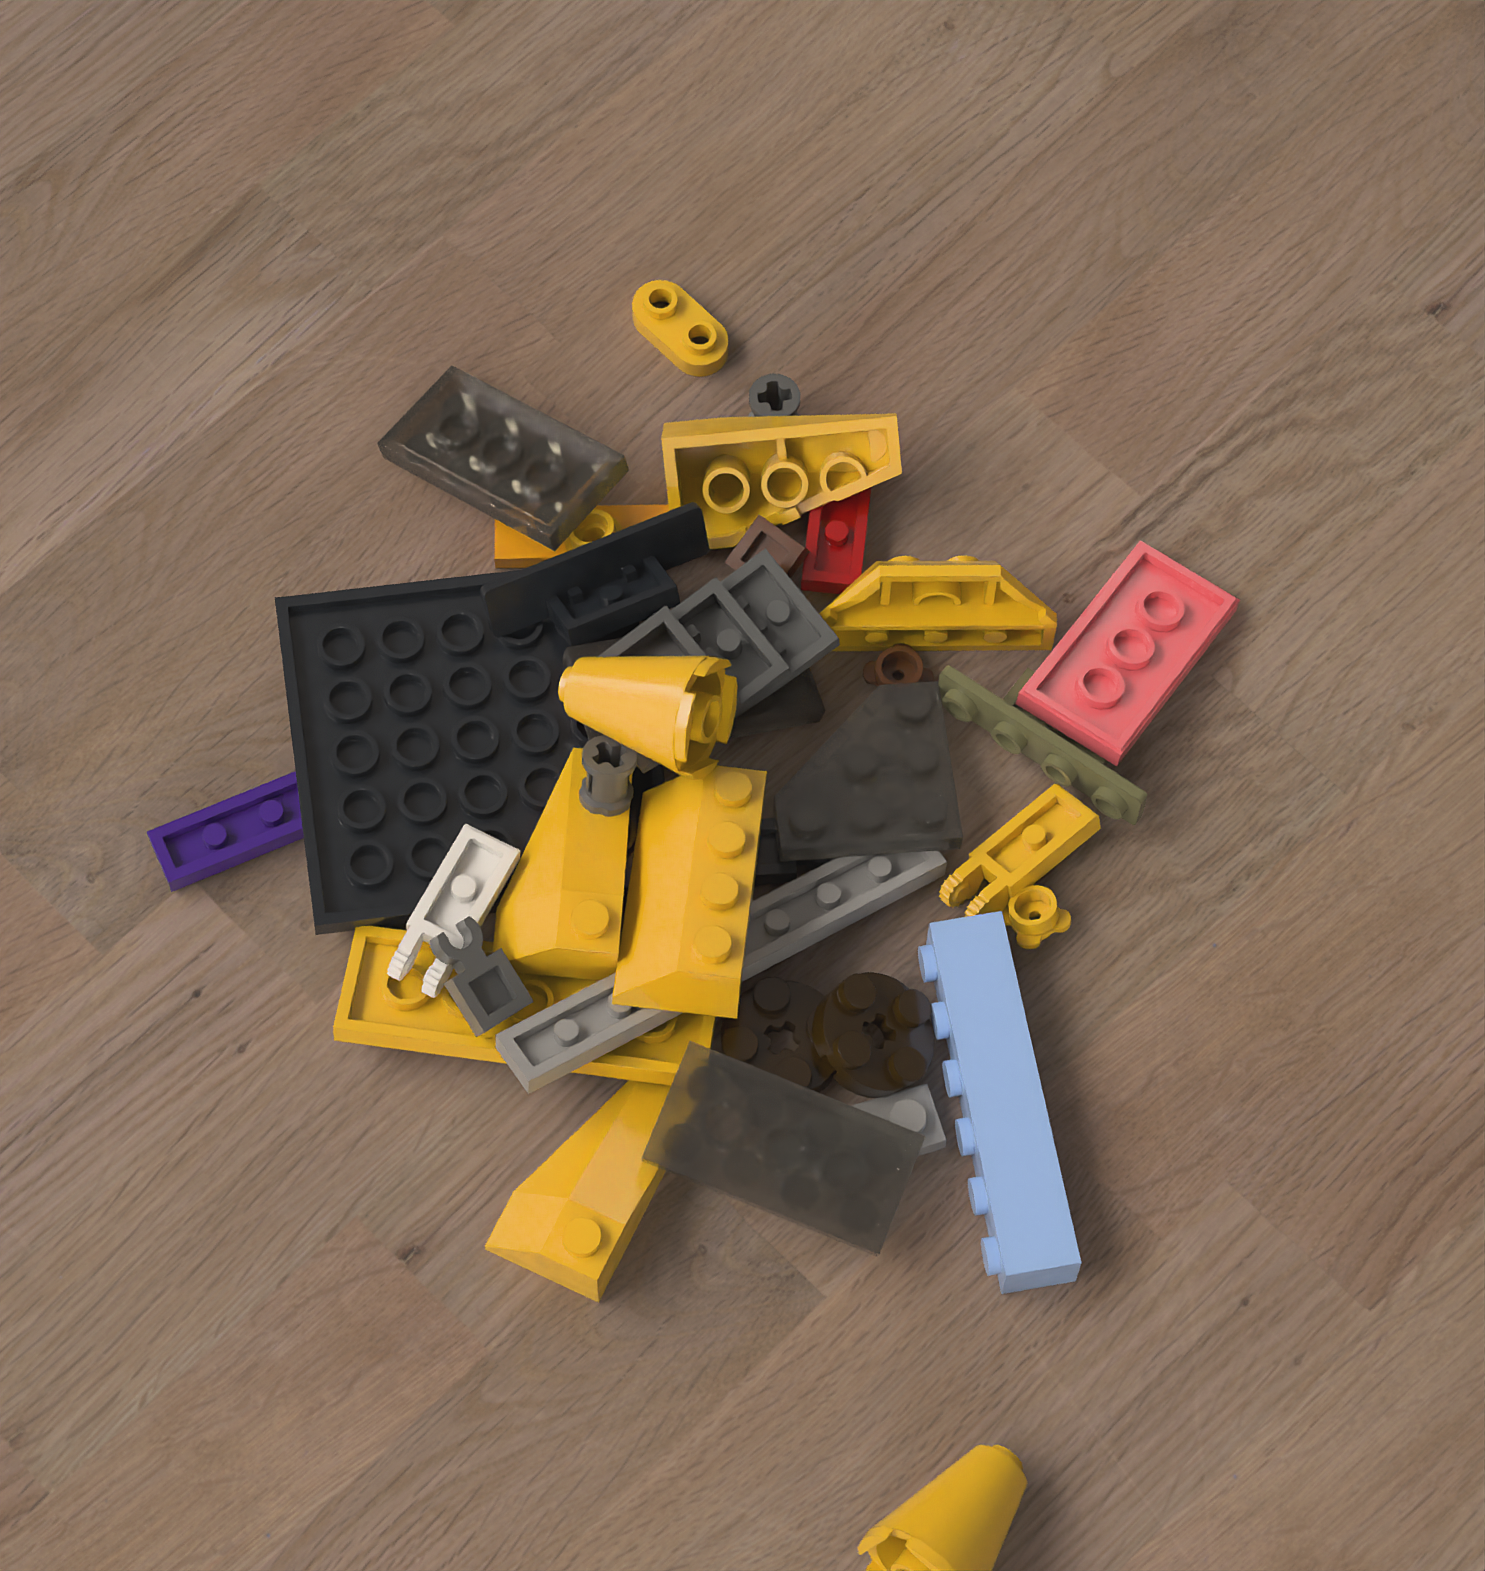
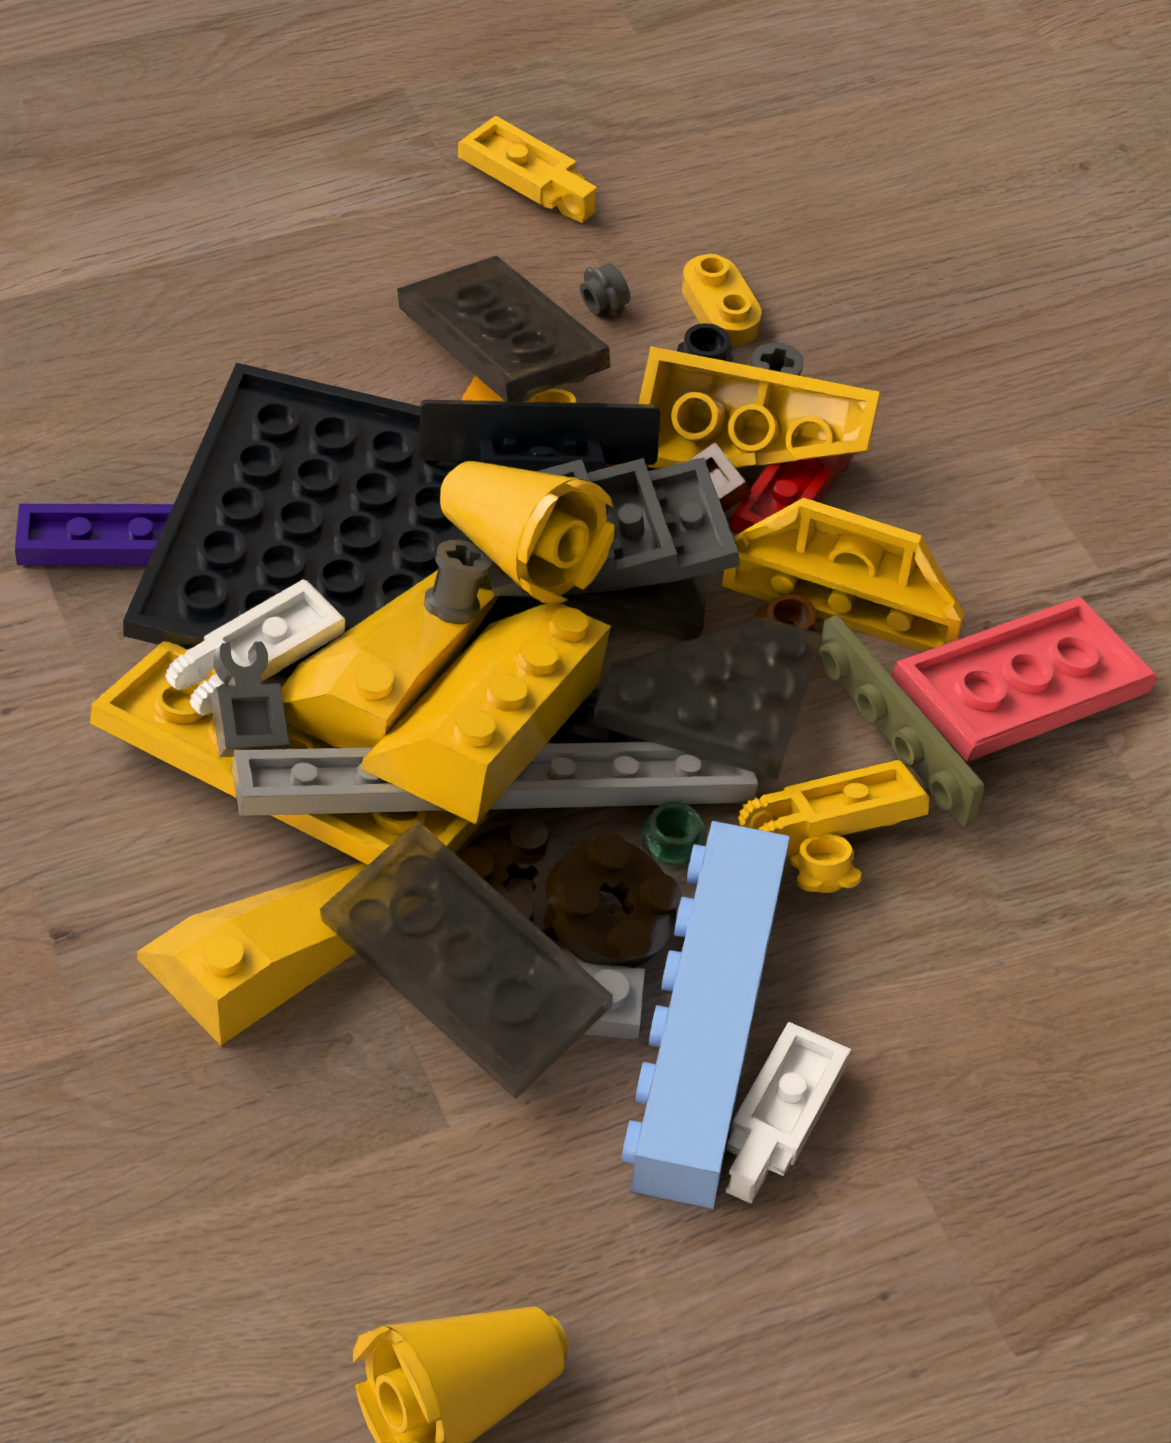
camera: 20 degrees right, 15 degrees down
(431, 243) = (529, 168): none -> yellow hinge
(569, 363) = (604, 290): none -> dark grey plate
(693, 383) = (707, 341): none -> black plate
(891, 921) = (673, 820): none -> clear green plate
(1098, 1166) = (783, 1107): none -> white hinge

